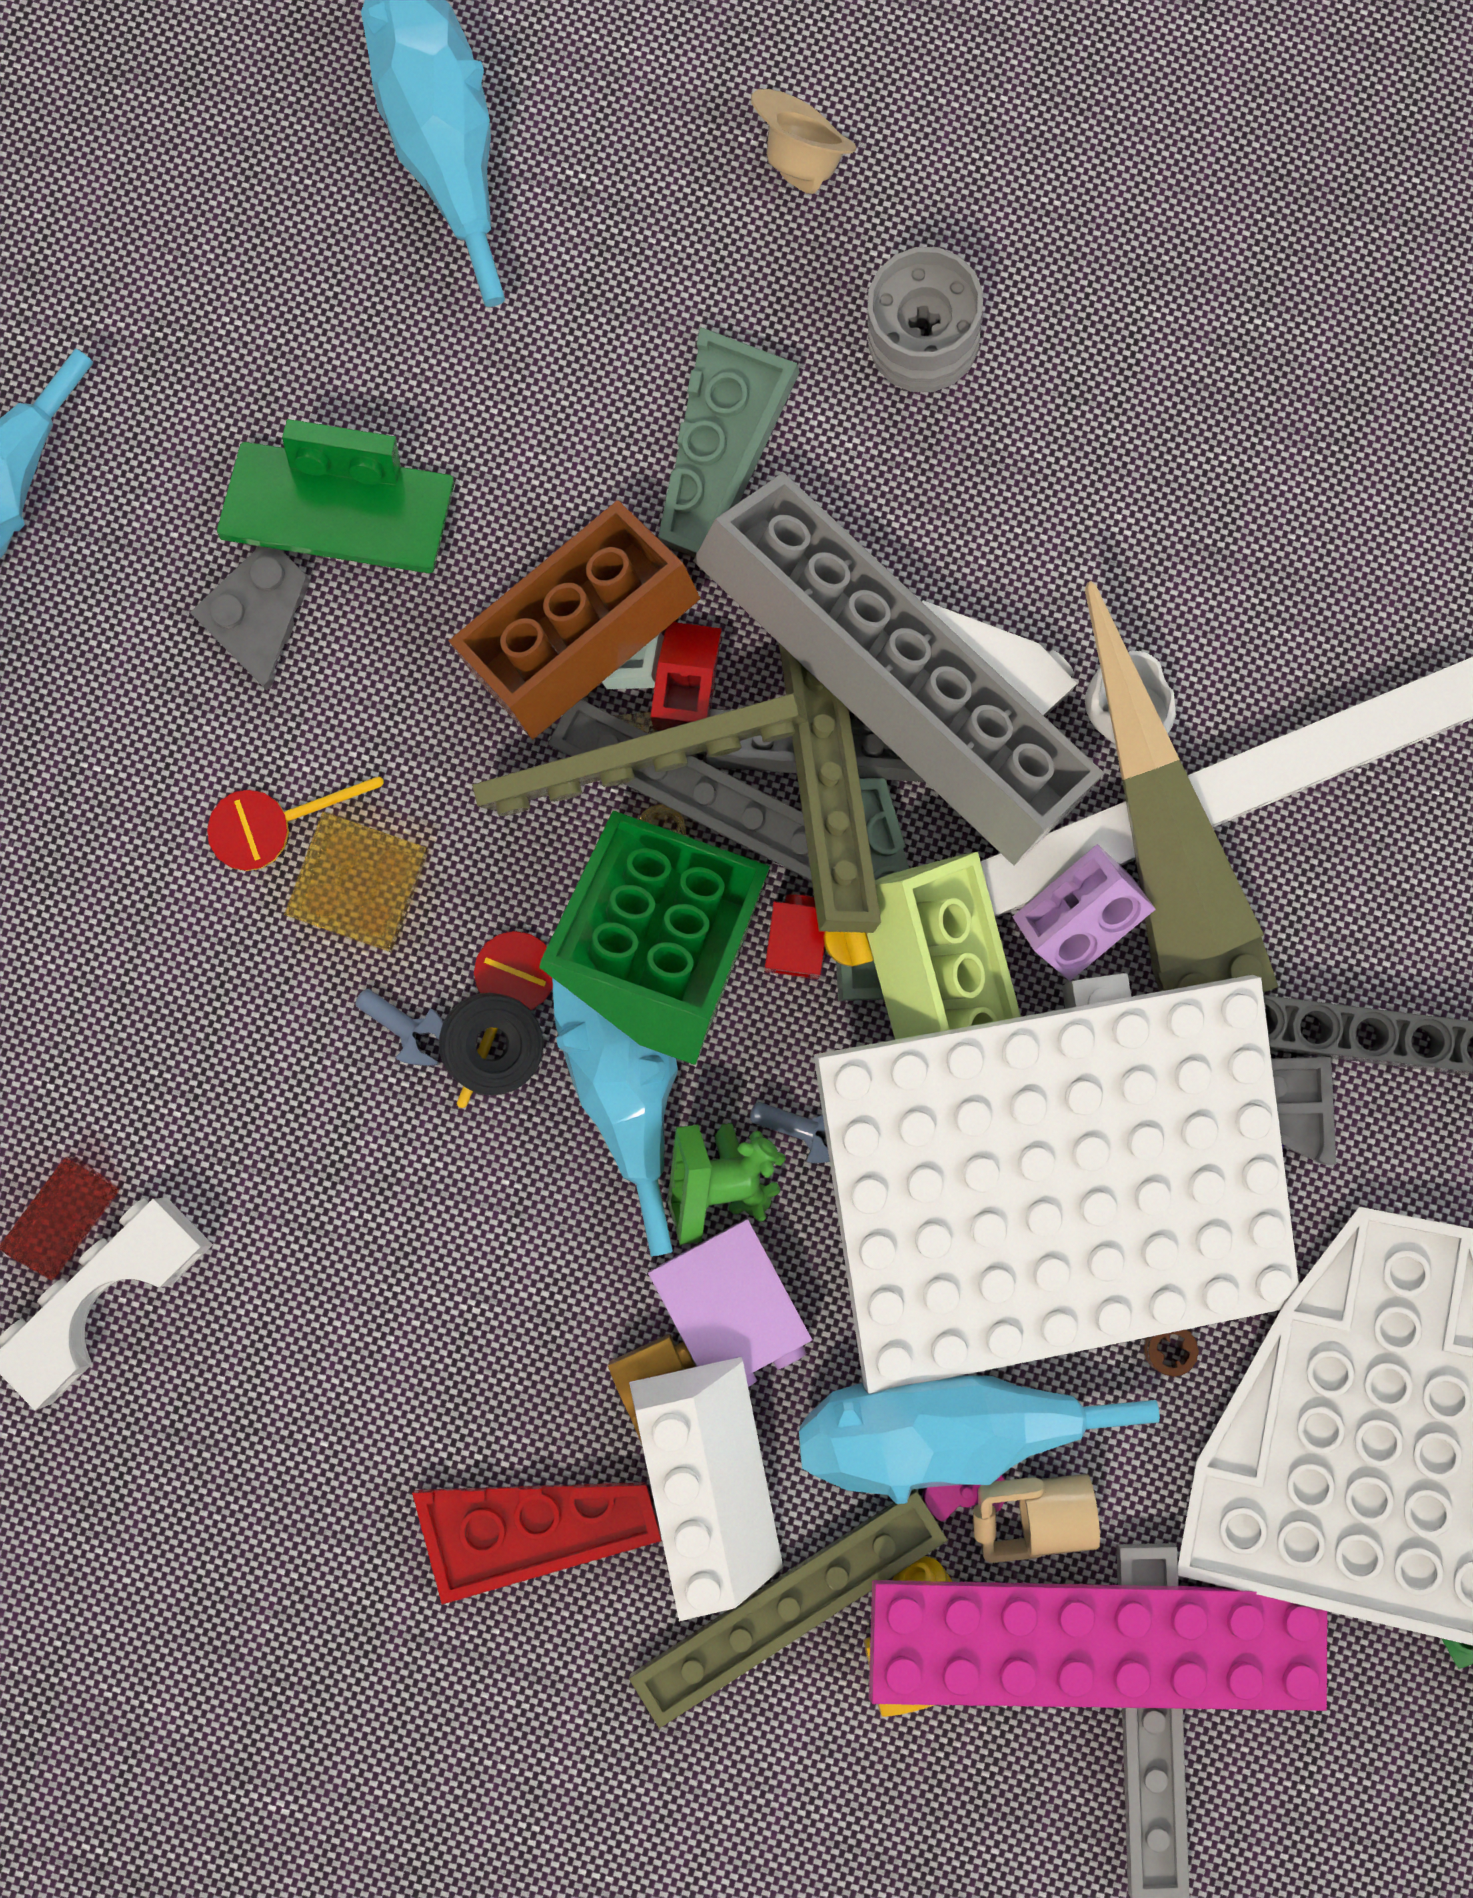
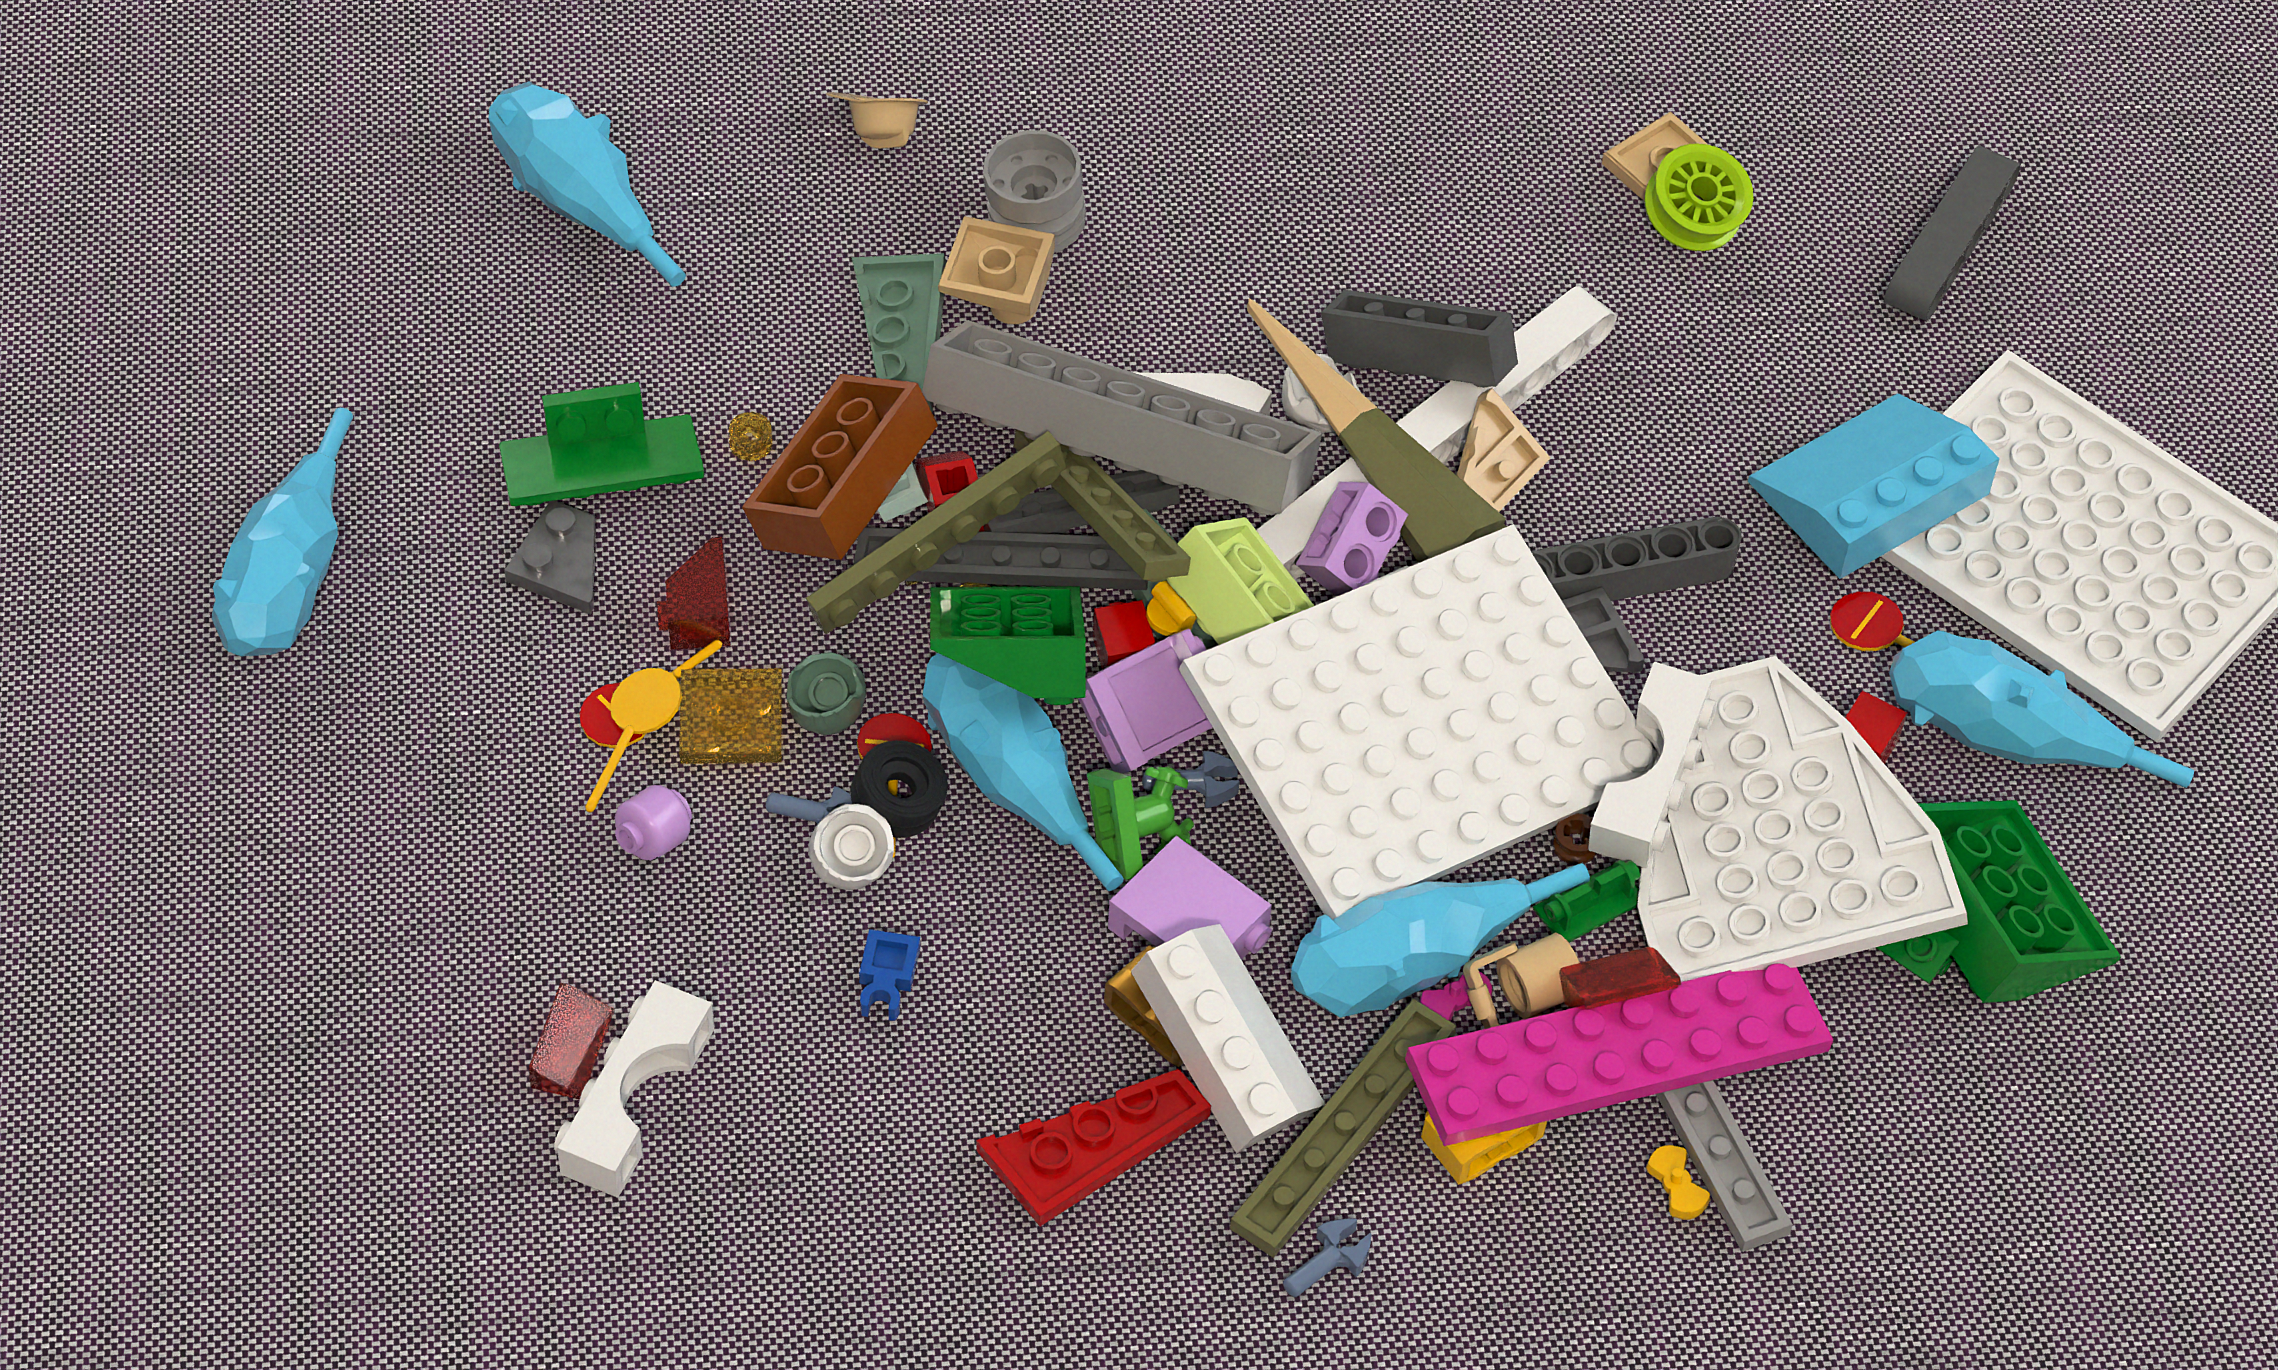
camera: 20 degrees left, 30 degrees down
(227, 990) = (652, 822): none -> lavender head
(272, 839) = (638, 706): none -> yellow piece
(374, 725) = (697, 600): none -> clear red slope
(406, 1248) = (887, 967): none -> blue plate
(412, 1103) = (851, 847): none -> white hair
(457, 897) = (826, 693): none -> sand green hair
(493, 534) = (759, 427): none -> clear yellow bush
(716, 1743) = (1331, 1256): none -> sand blue bar
(779, 1025) = (1145, 703): none -> lavender panel
(848, 403) = (999, 268): none -> tan slope
(1097, 1768) = (1685, 1197): none -> yellow piece
(1131, 1574) = (1617, 978): none -> clear red slope
(1180, 1433) = (1593, 903): none -> green hinge
(1267, 680) = (1420, 338): none -> dark grey brick
(1289, 848) = (1498, 452): none -> tan wing
(1332, 1269) = (1634, 812): none -> white arch

